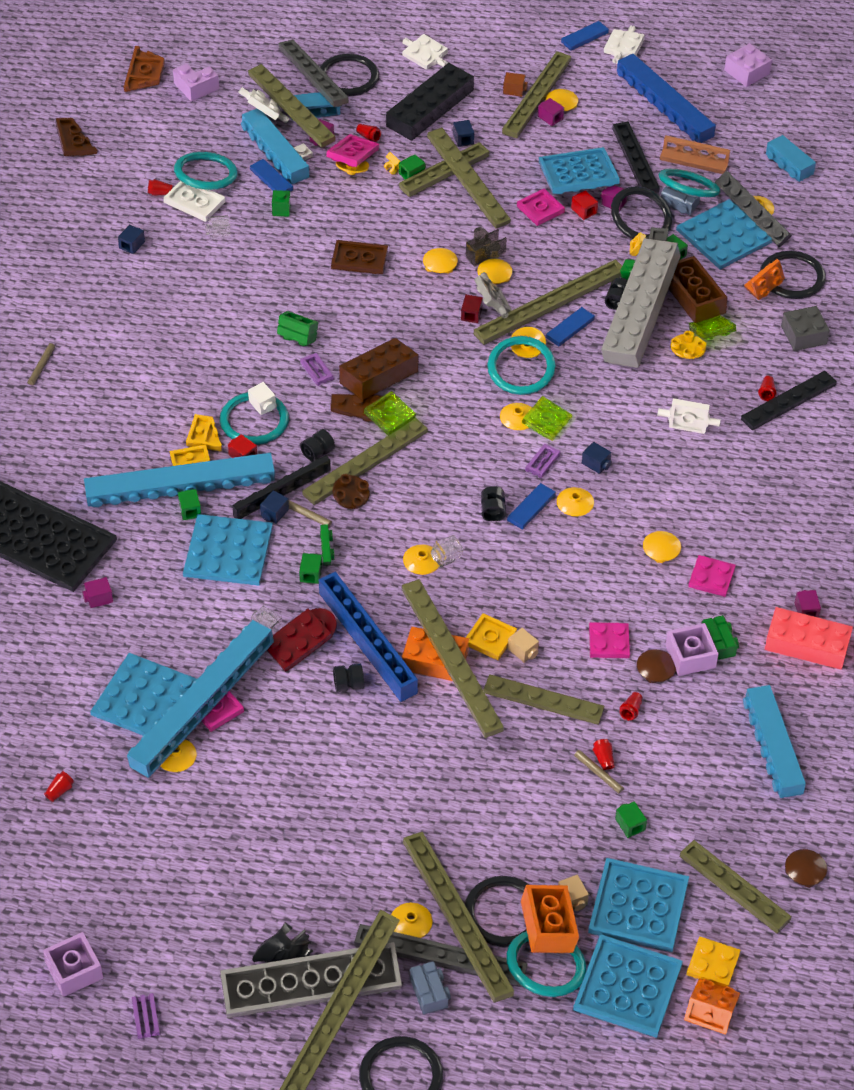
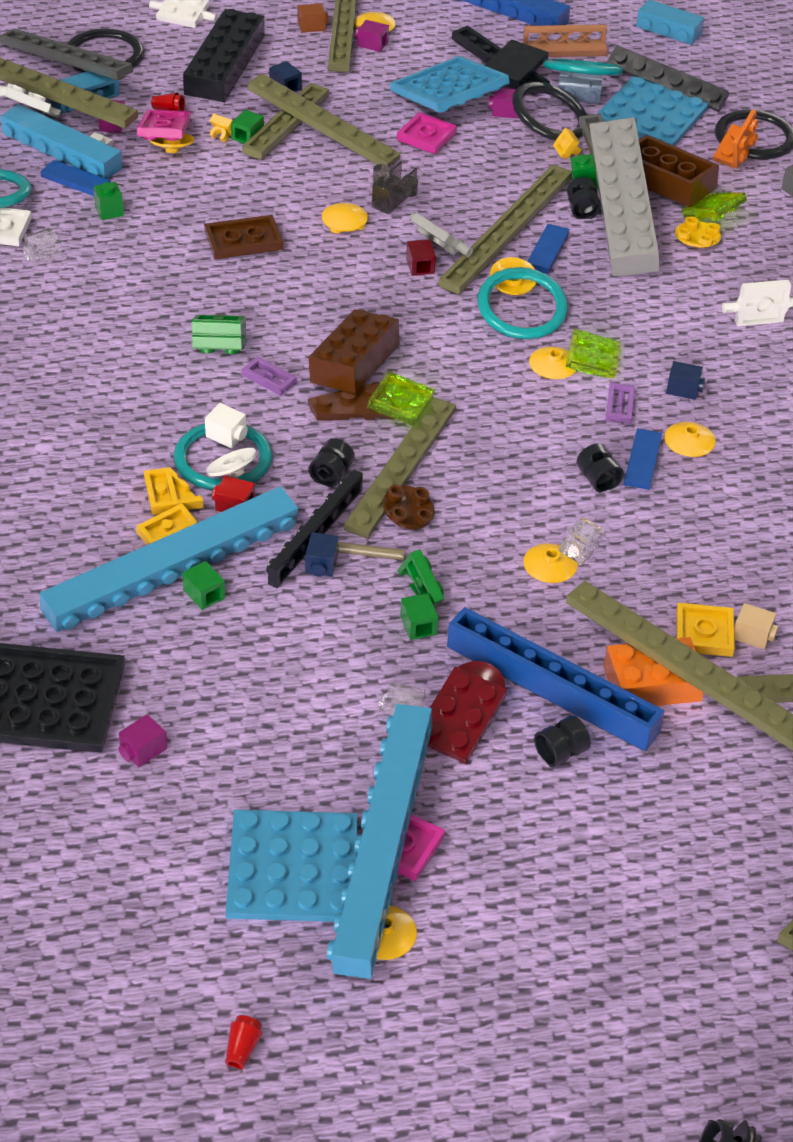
camera: 25 degrees left, 5 degrees down
(228, 549) = (289, 629): dark azure plate -> none
(250, 426) = (232, 463): none -> white dish
(496, 269) = (421, 206): yellow dish -> none
(584, 205) = (477, 118): red brick -> none
(641, 165) = (517, 61): none -> black tile

